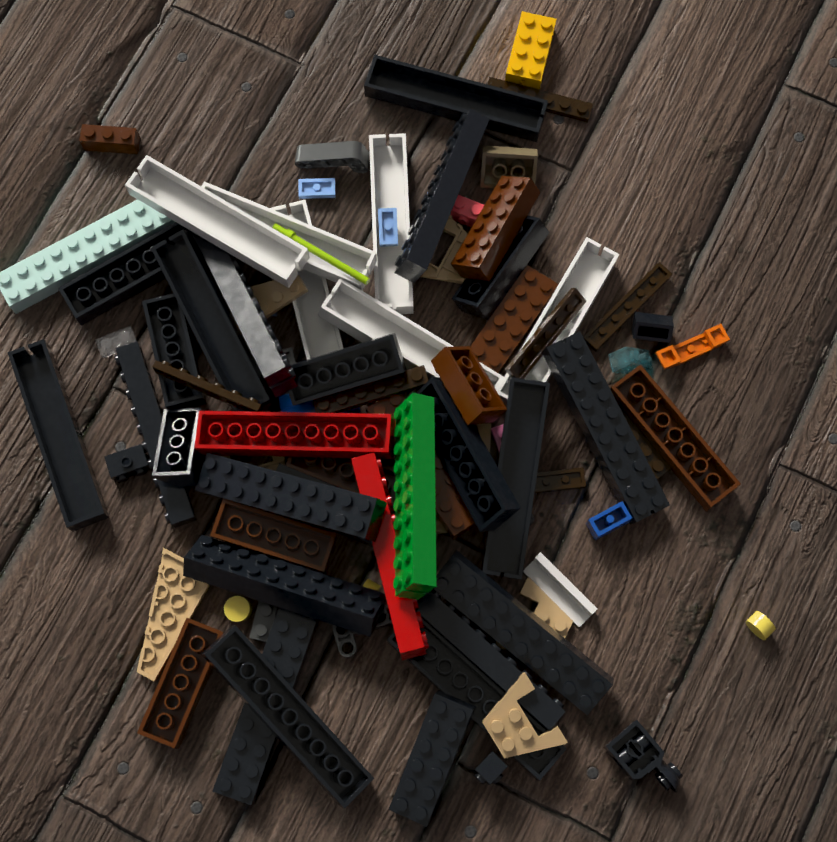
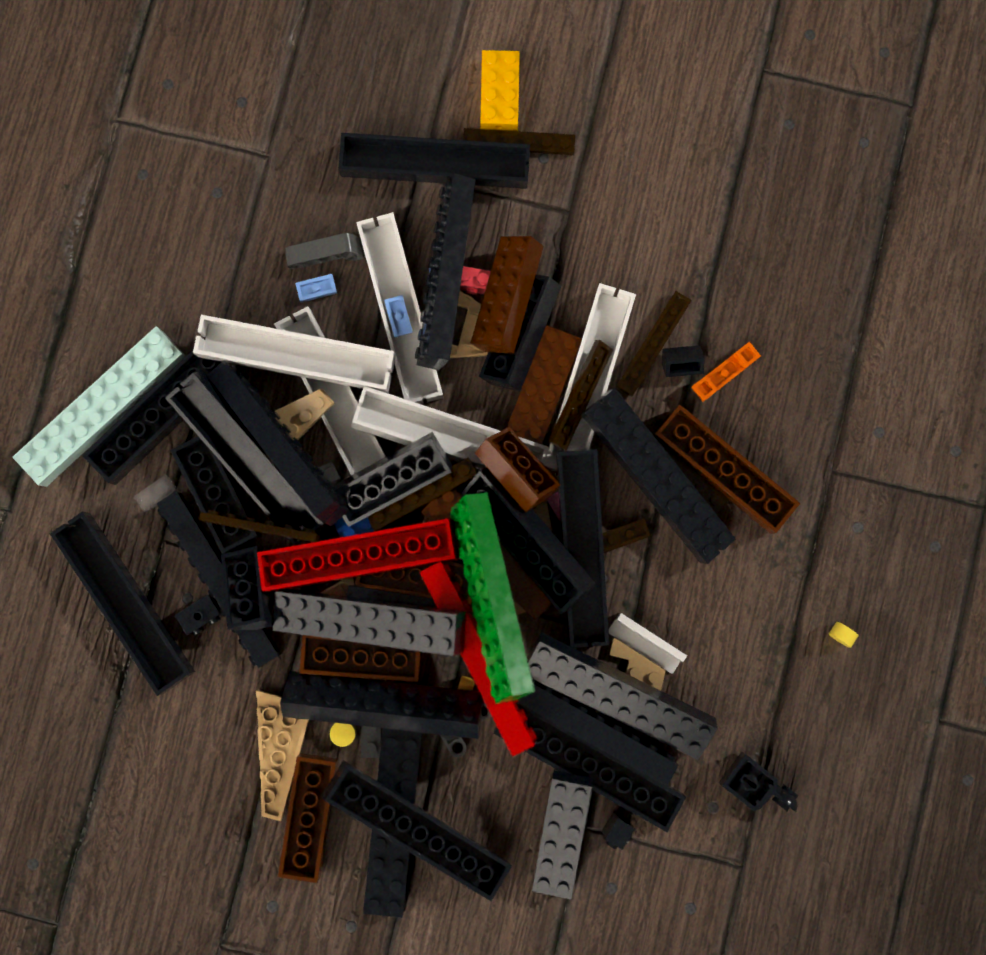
camera: 15 degrees left, 10 degrees up
(109, 139) = (91, 282): reddish brown brick -> none
(217, 221) = (225, 357): white piece -> none
(323, 255) = (303, 352): lime bar -> none
(507, 161) = (504, 219): dark tan slope -> none
(511, 727) = (631, 792): tan wing -> none
(608, 520) = (680, 566): blue brick -> none
(628, 359) = (667, 399): clear light blue slope -> none

